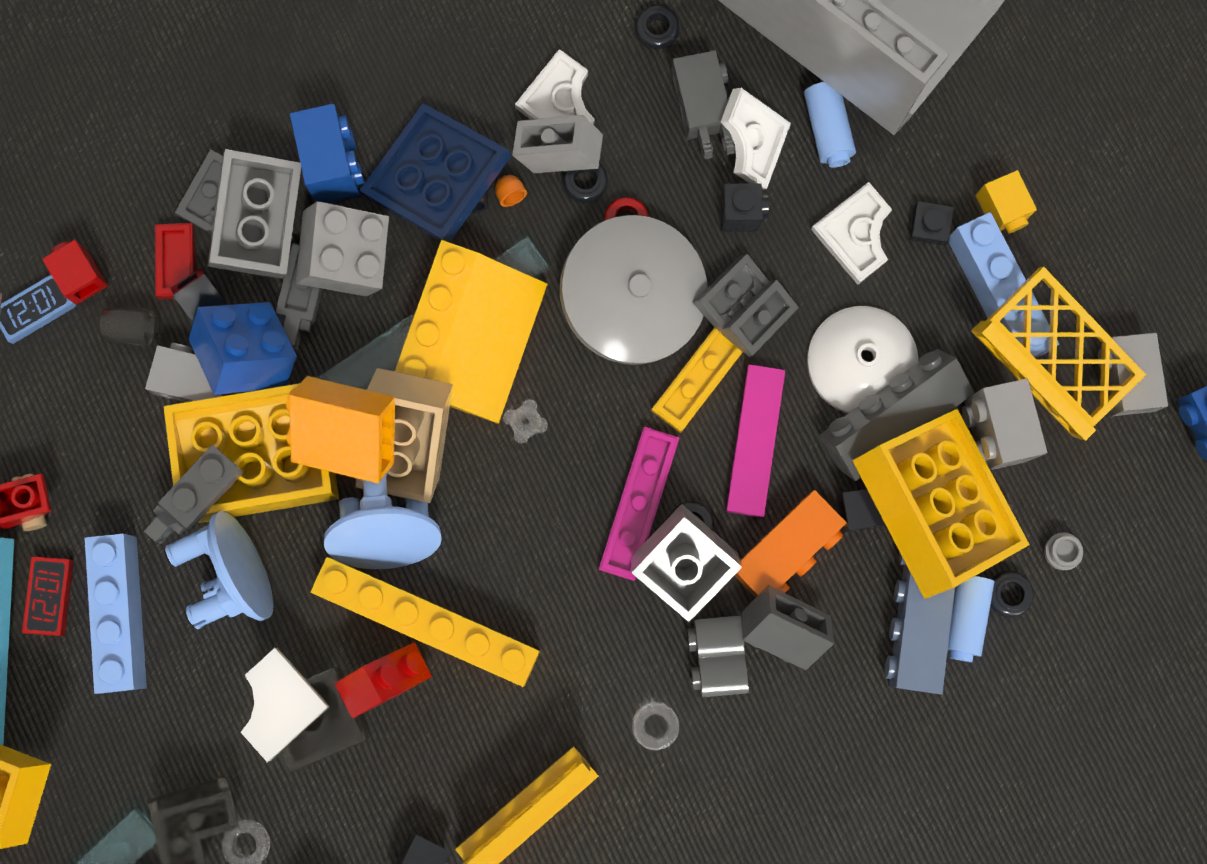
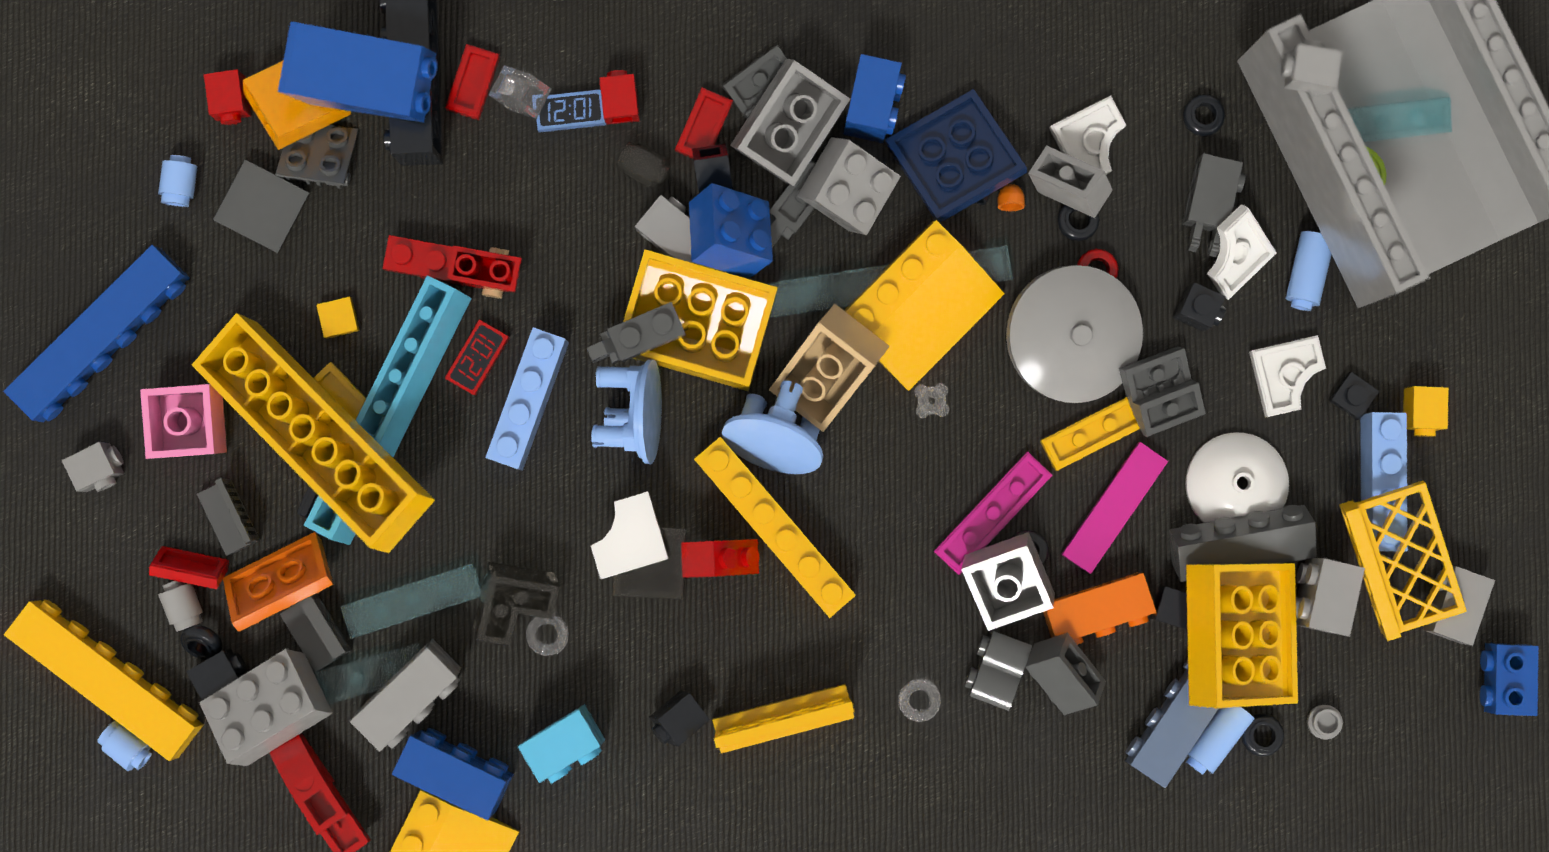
camera: 25 degrees right, 5 degrees up
(341, 429) = (784, 342): light orange brick -> none

